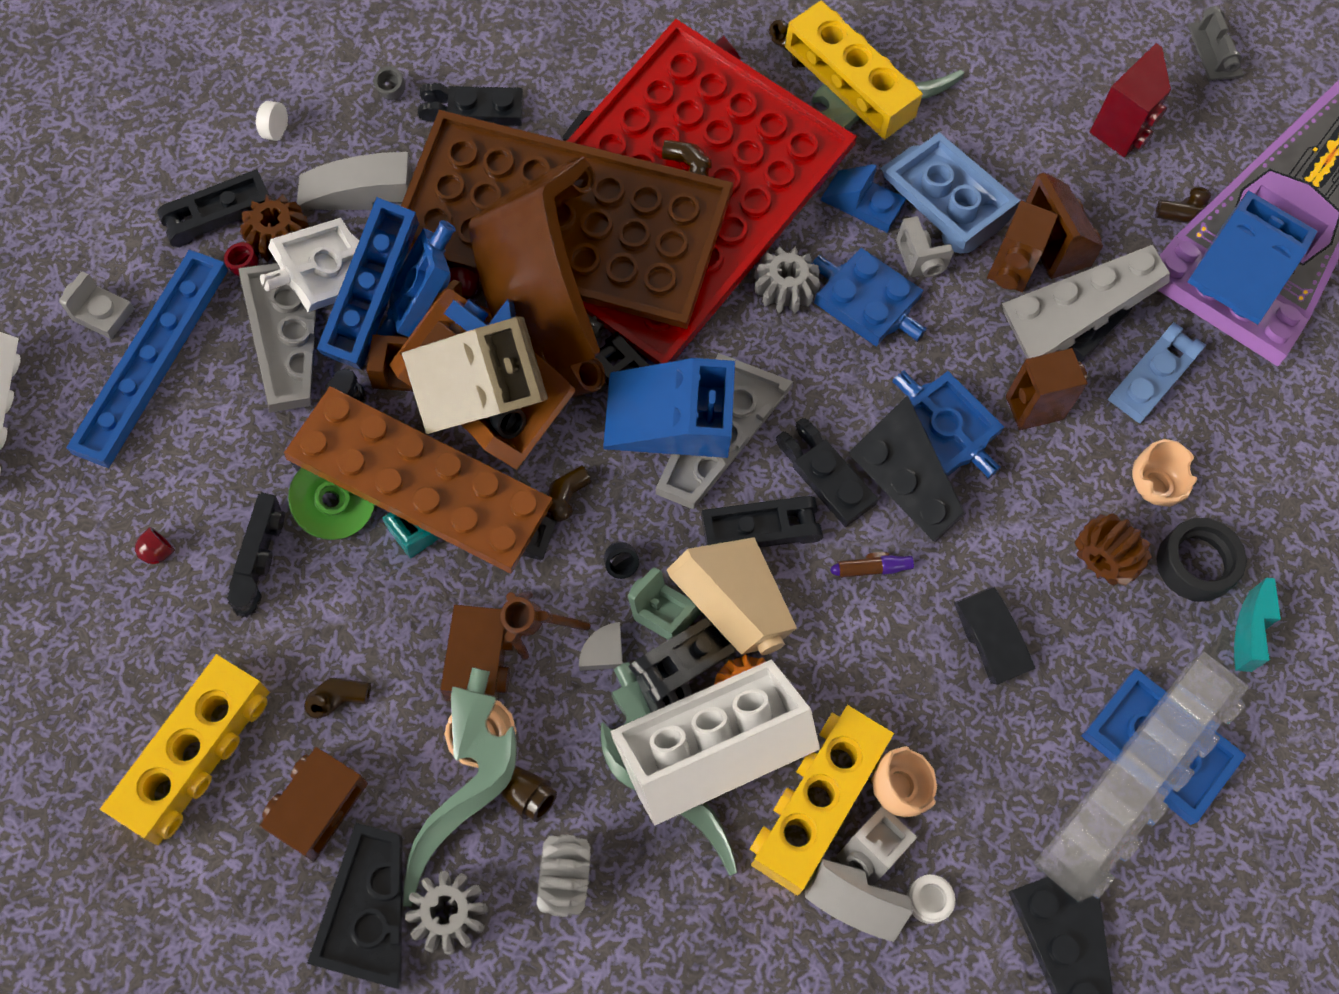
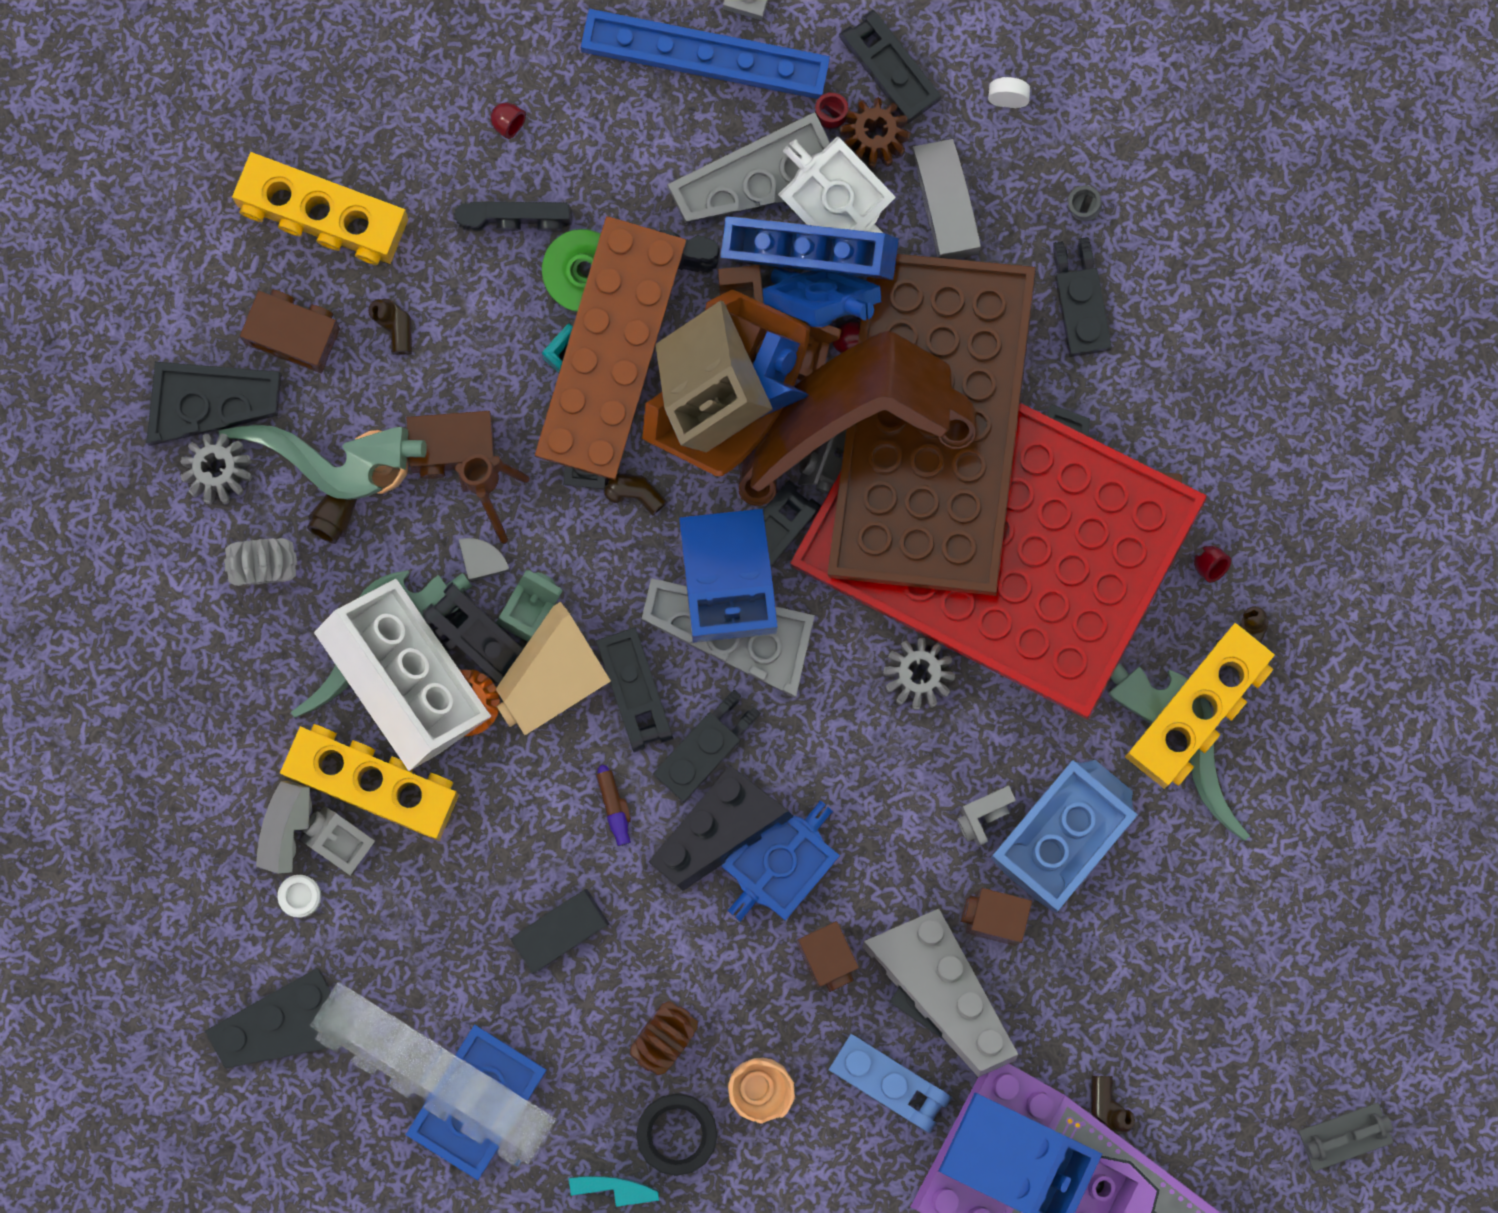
camera: 80 degrees right, 15 degrees up
(624, 564) = (571, 558): black hinge -> none
(689, 154) = (1027, 545): dark brown arm -> none
(860, 197) = (1046, 745): blue slope -> none
(869, 297) = (920, 765): blue plate -> none
(904, 782) = (396, 857): light nougat hair -> none
(1073, 239) = (1042, 963): reddish brown slope -> none
(1134, 104) = (1219, 1031): dark red slope -> none

